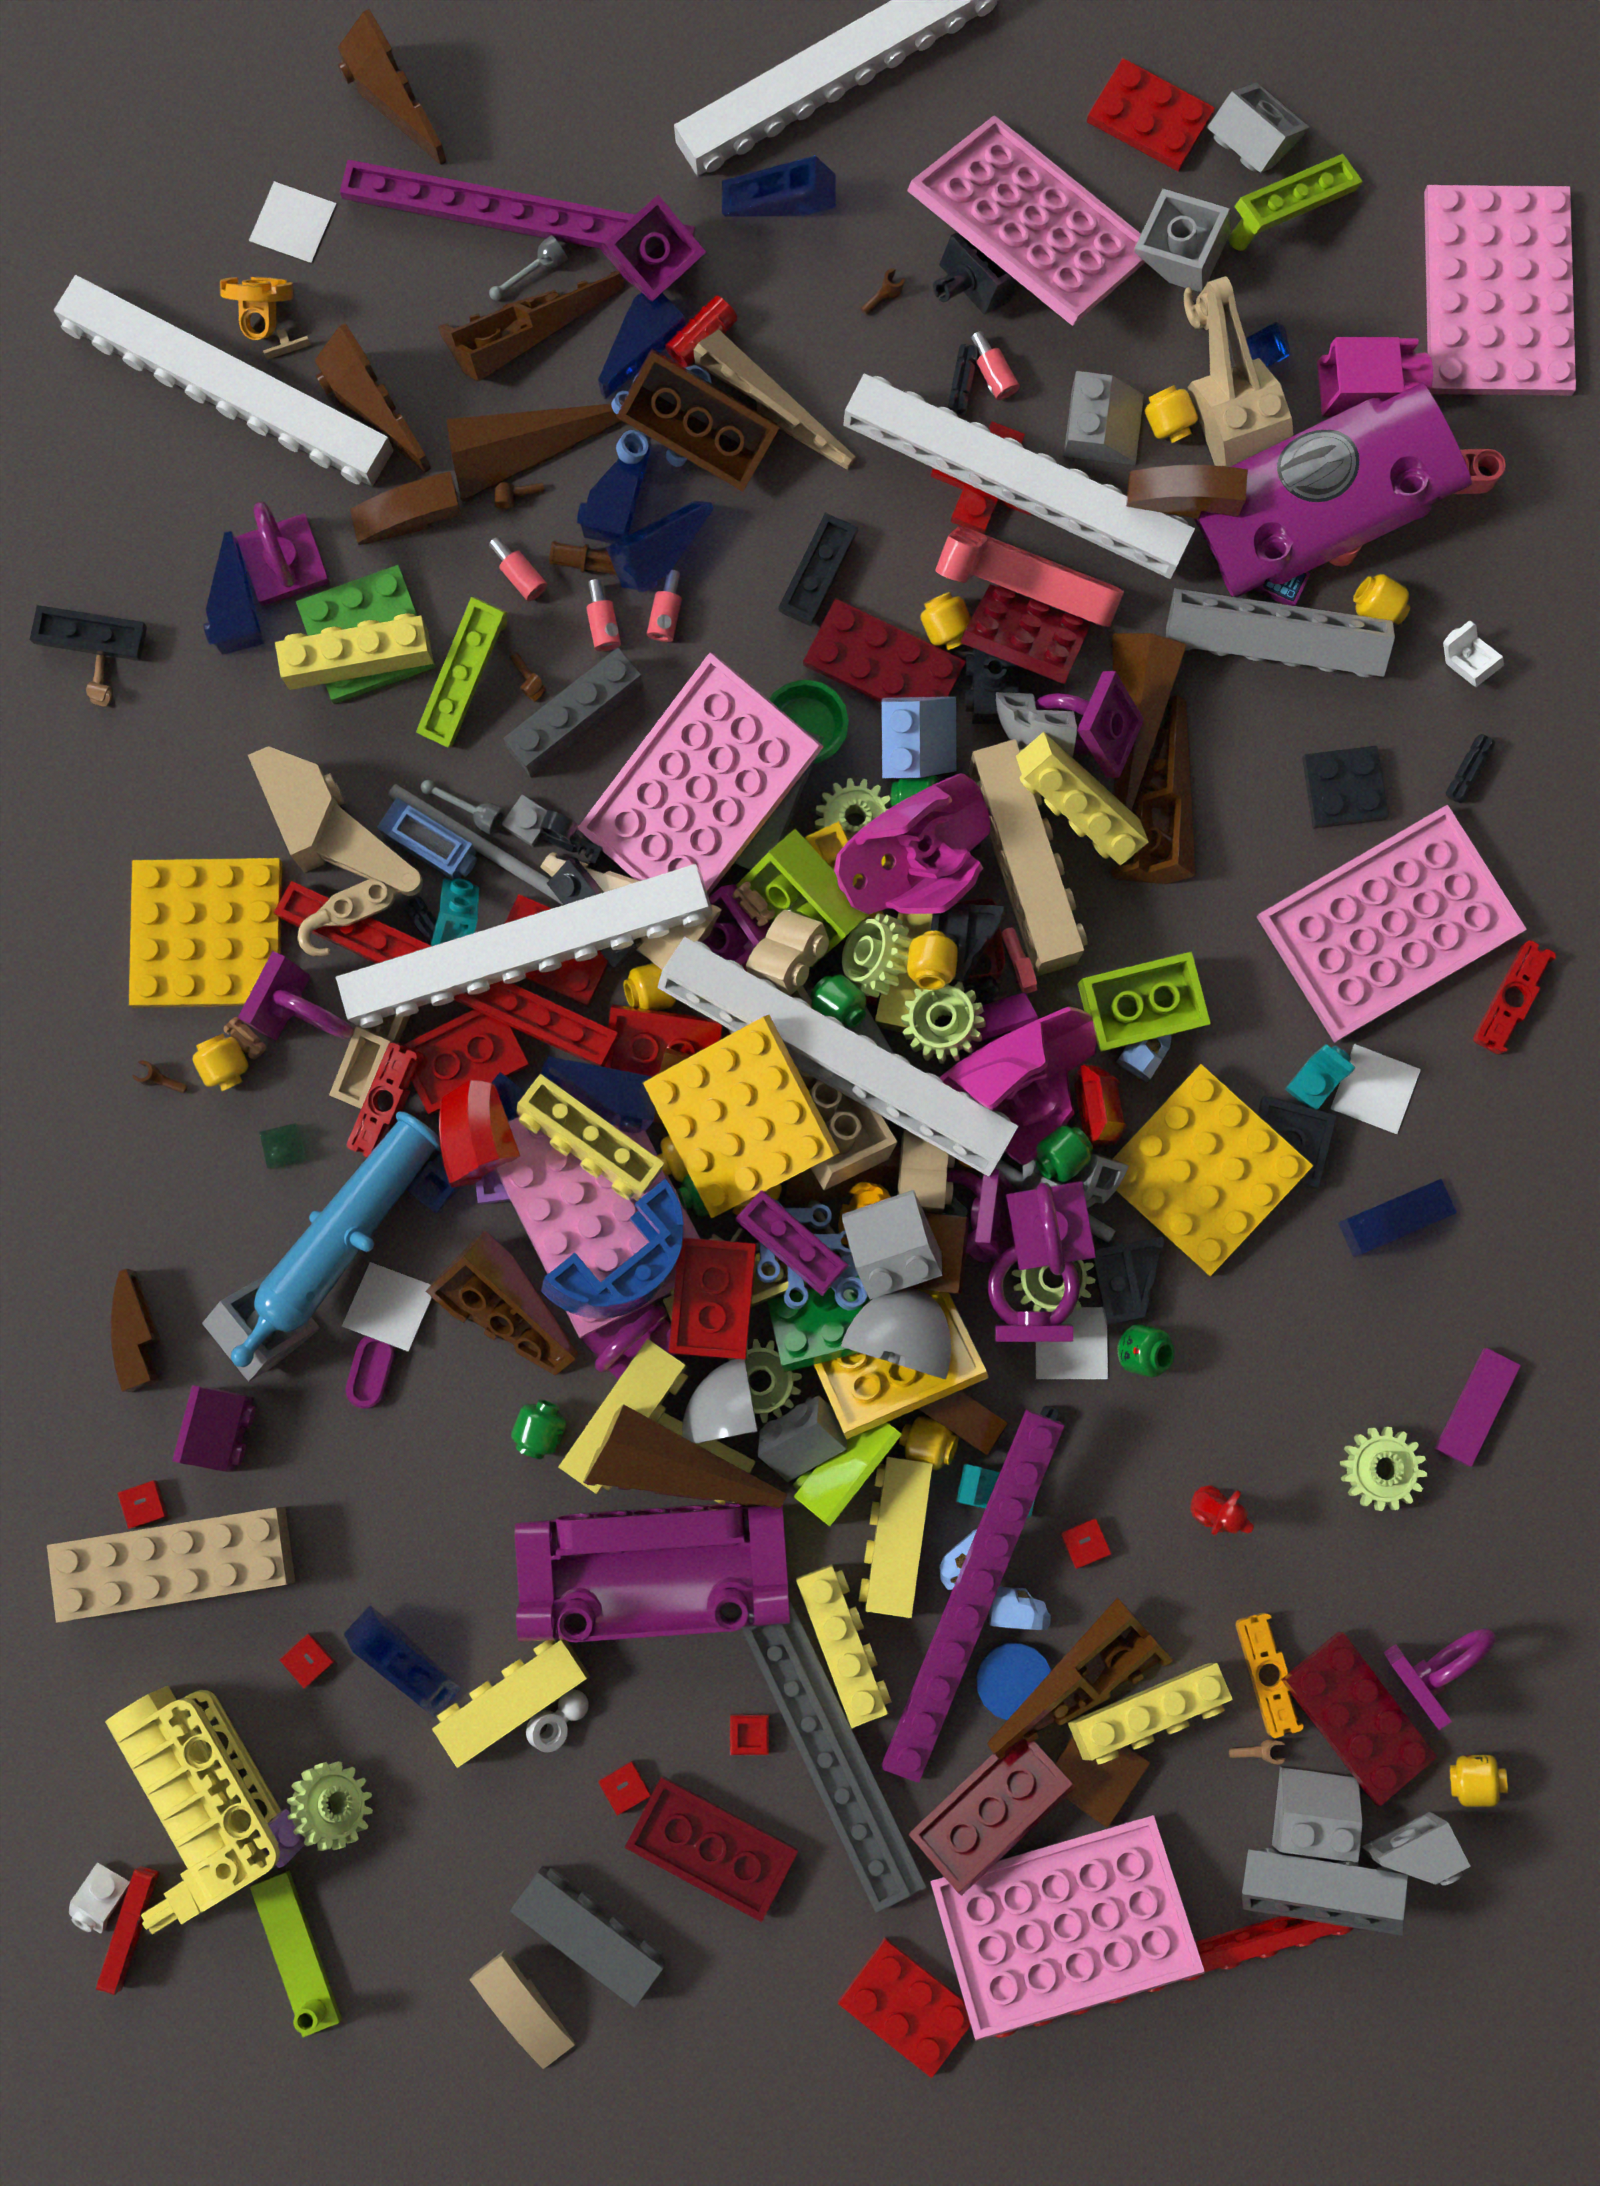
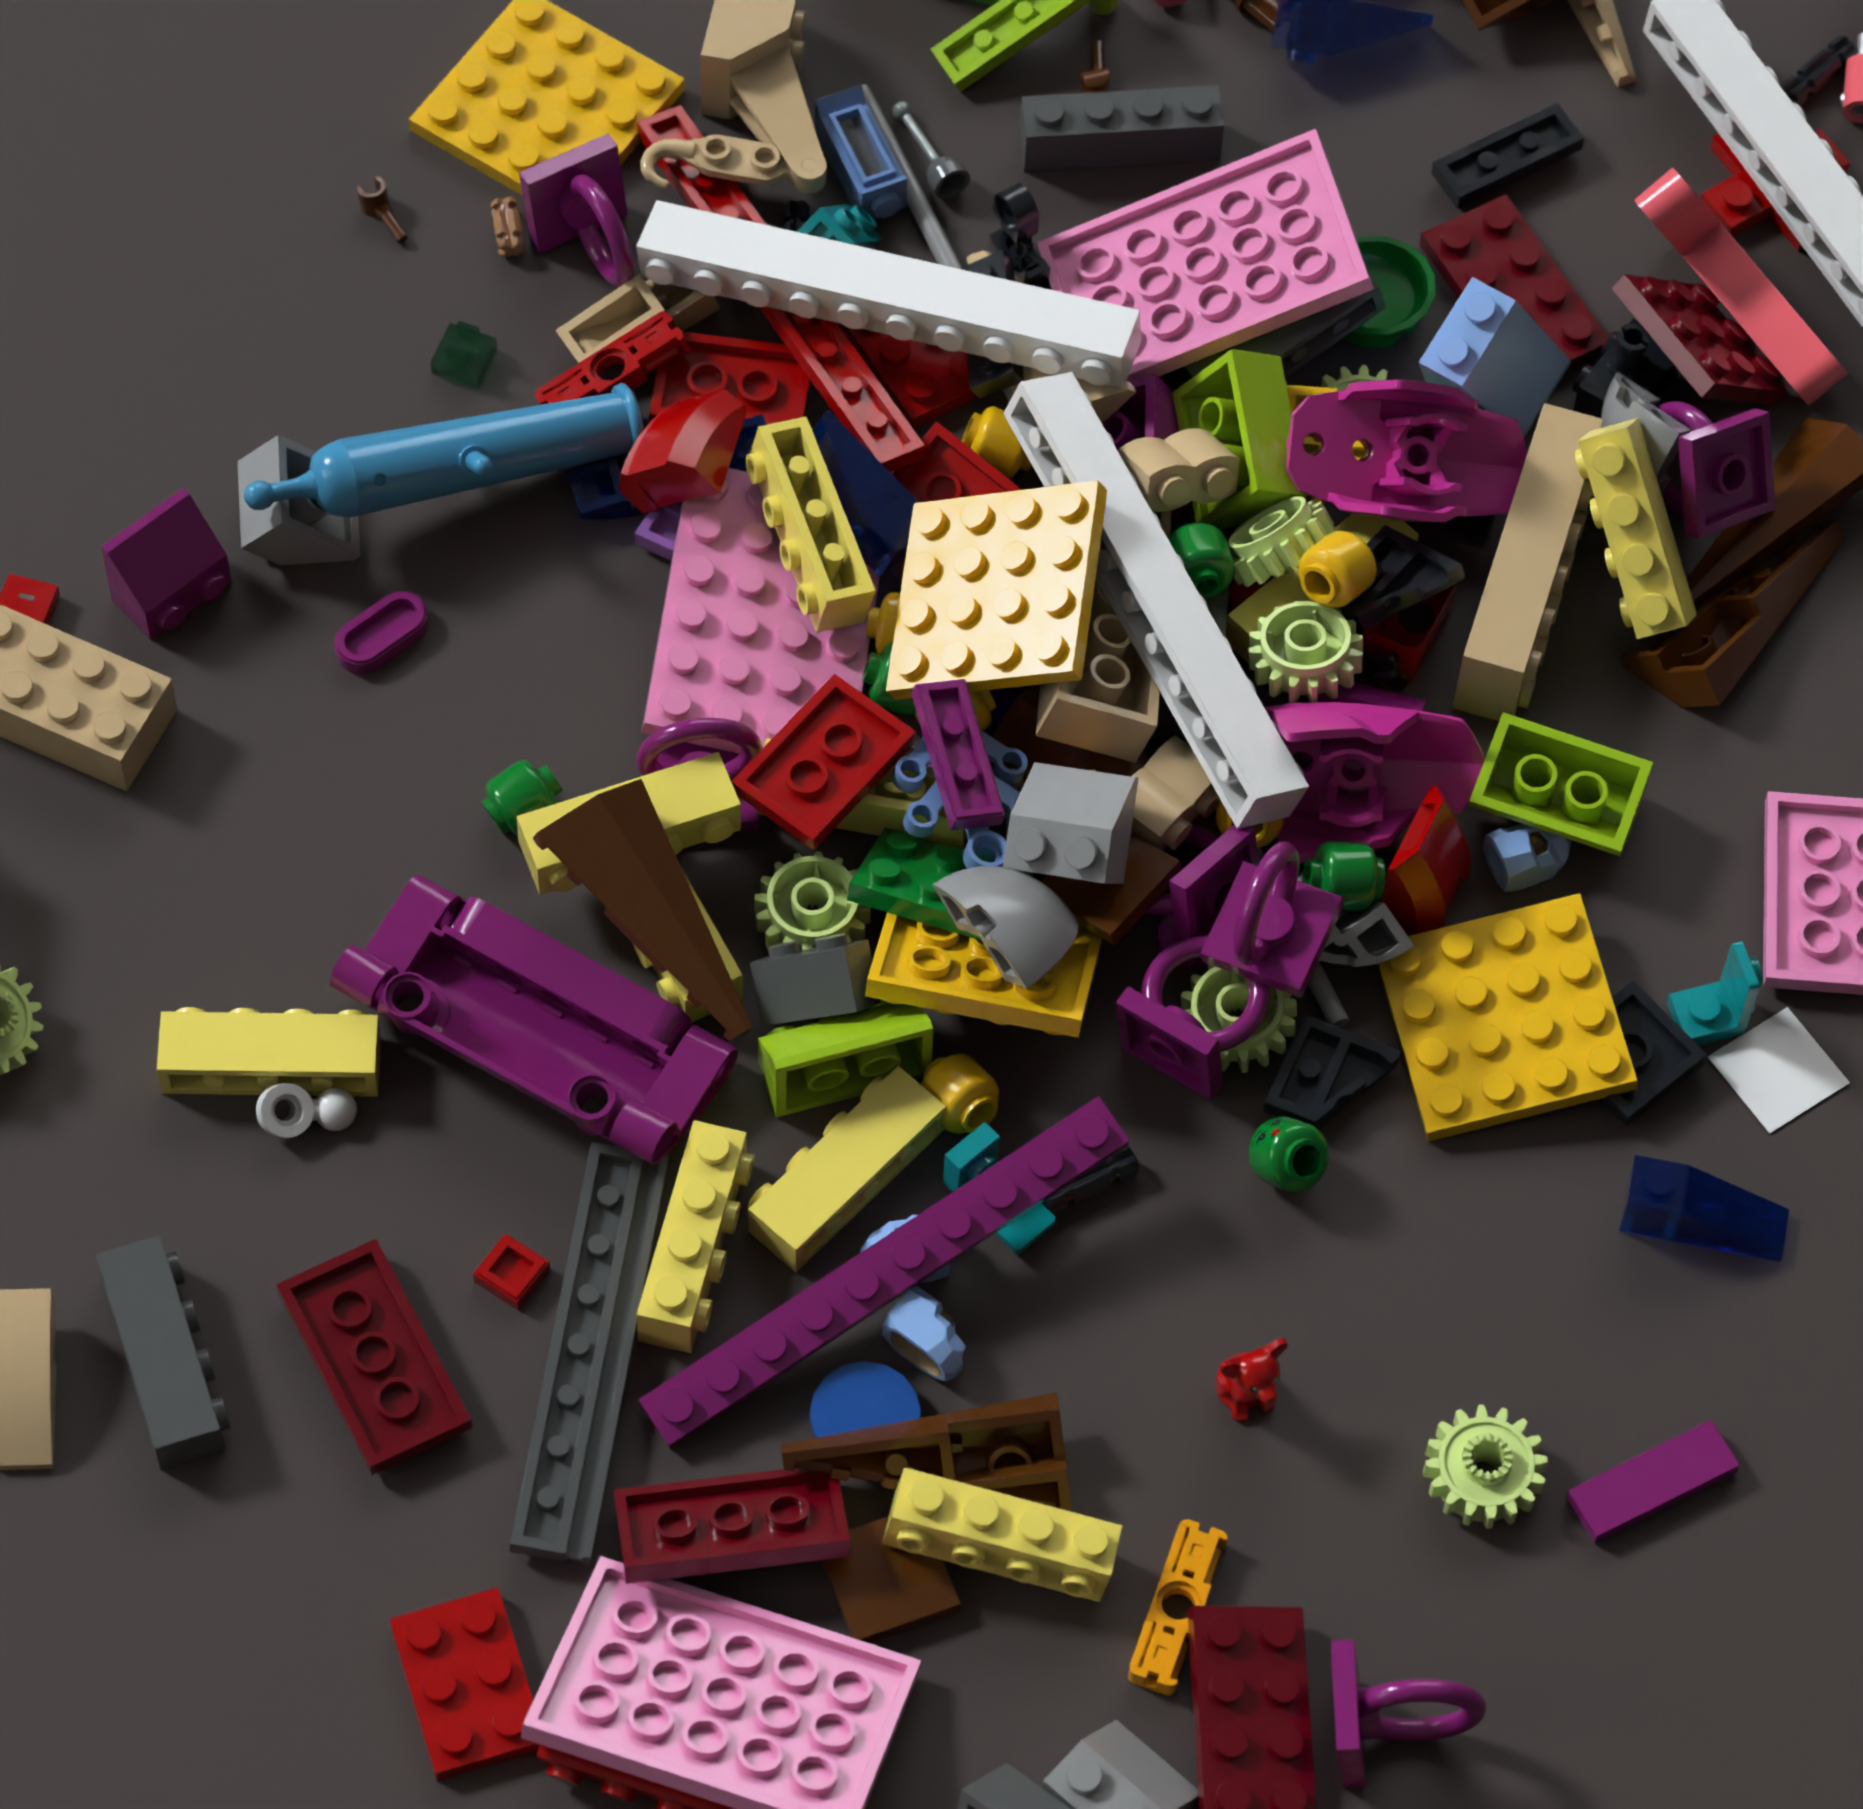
camera: 30 degrees right, 20 degrees down
(131, 1334) = (152, 429): reddish brown slope -> none
(220, 1062) = (463, 228): yellow head -> none
(307, 1660) = (76, 872): red tile -> none
(388, 1306) = (453, 580): white sticker -> none
(400, 1661) = (180, 934): clear blue slope -> none
(497, 1295) = (580, 636): reddish brown wedge -> none
(525, 820) = (976, 206): light grey plate -> none
(602, 619) = (1226, 59): coral piece -> none
(624, 1788) = (323, 1231): red tile -> none
(636, 1280) = (744, 670): blue cylinder -> none
(665, 610) = (1301, 96): coral piece -> none
(720, 1405) = (751, 876): light grey brick -> none
(753, 904) = (1175, 409): medium nougat piece -> none
(945, 620) = (1603, 275): yellow head -> none
(967, 1420) = (1017, 1075): reddish brown slope -> none
(1023, 968) = (1444, 672): coral bar -> none
(1077, 1359) = (1206, 1127): white sticker -> none
(1085, 1543) = (1062, 1323): red tile -> none
(1261, 1751) = (1103, 1684): medium nougat hand -> none

